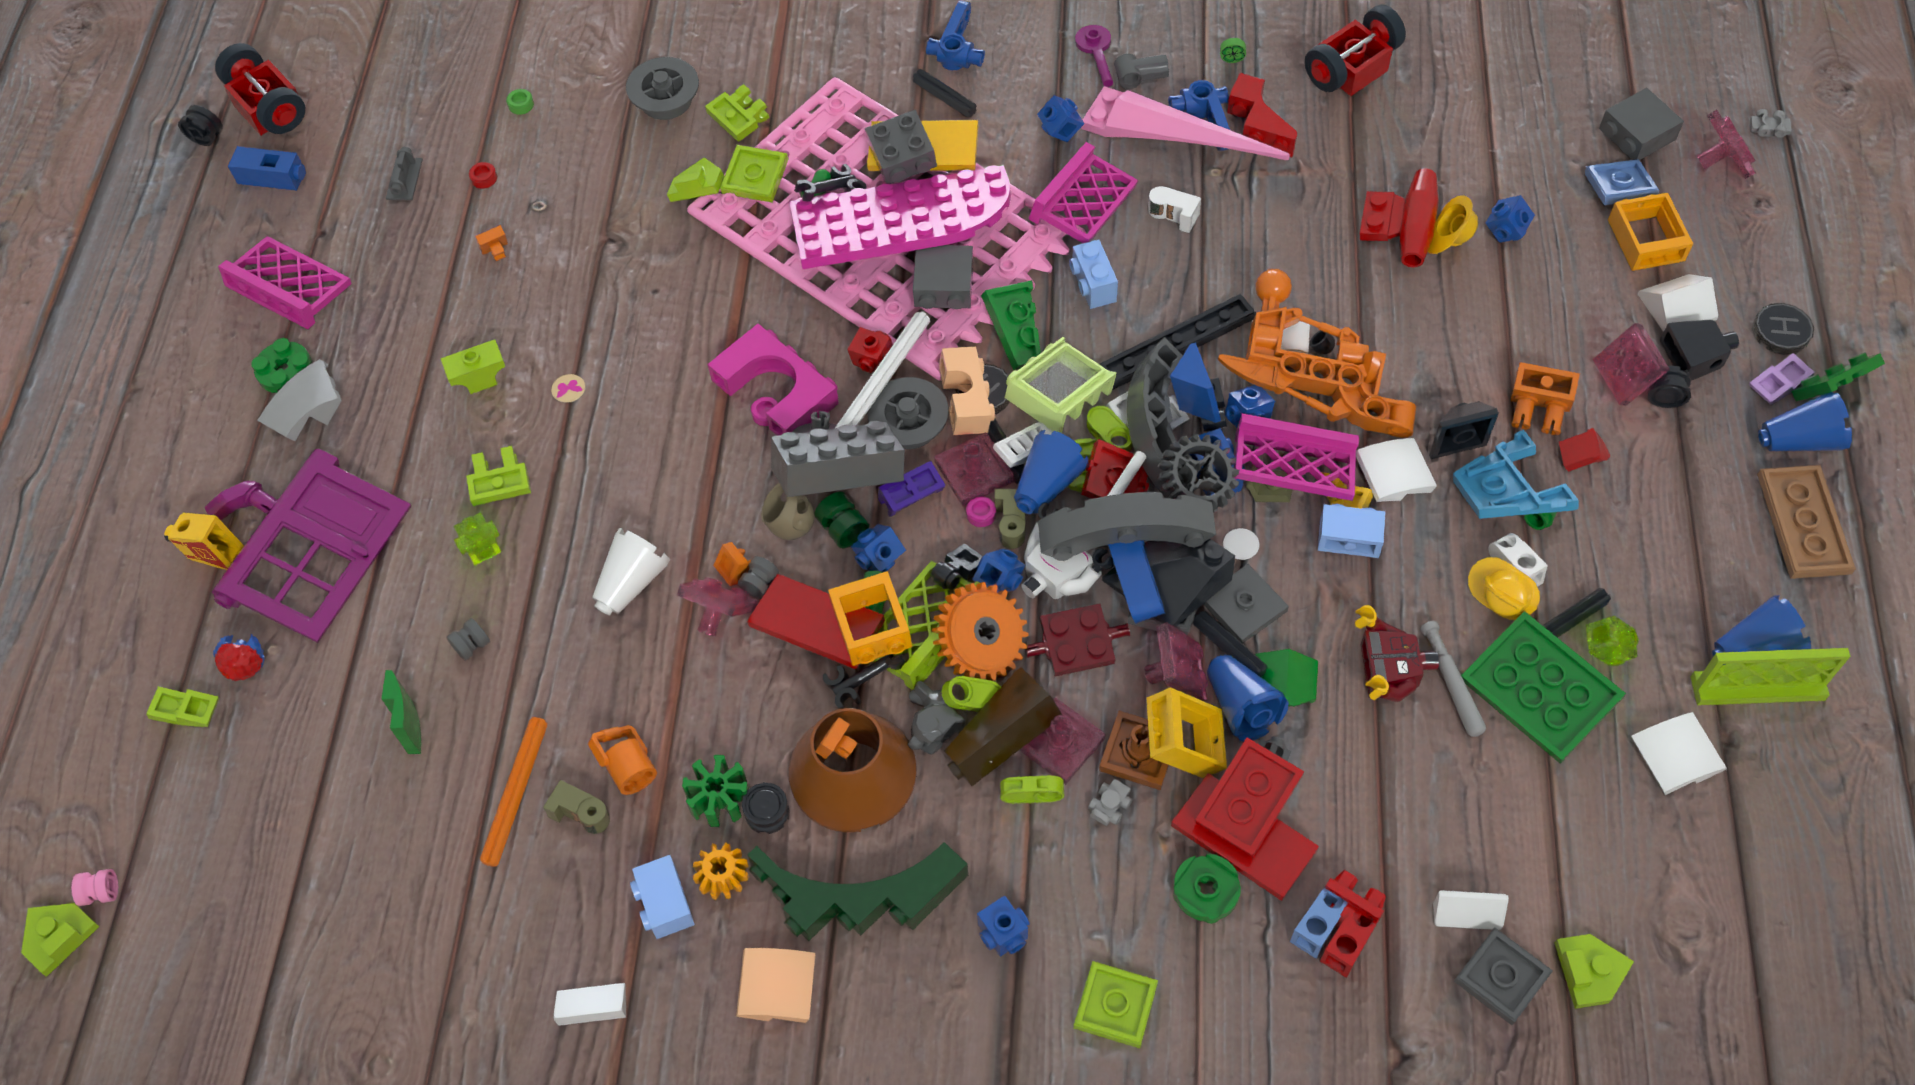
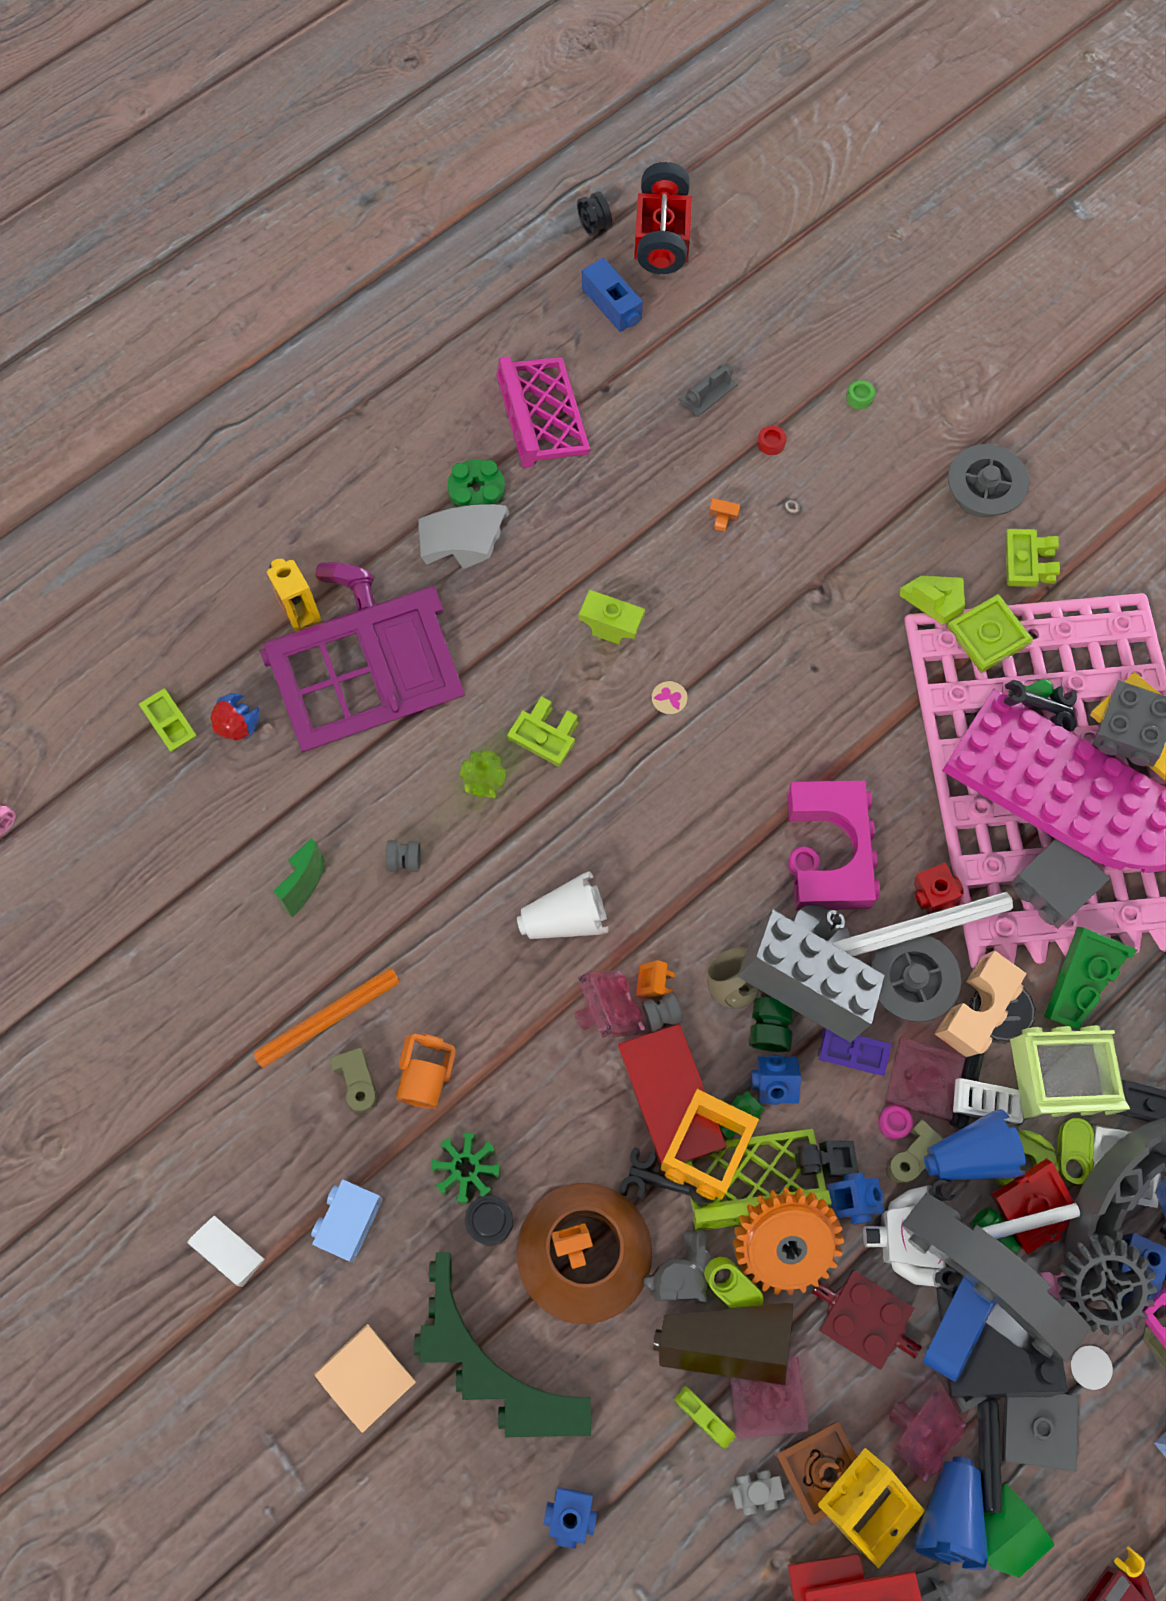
camera: 40 degrees right, 10 degrees up
(720, 883) = (400, 1232): light orange gear -> none

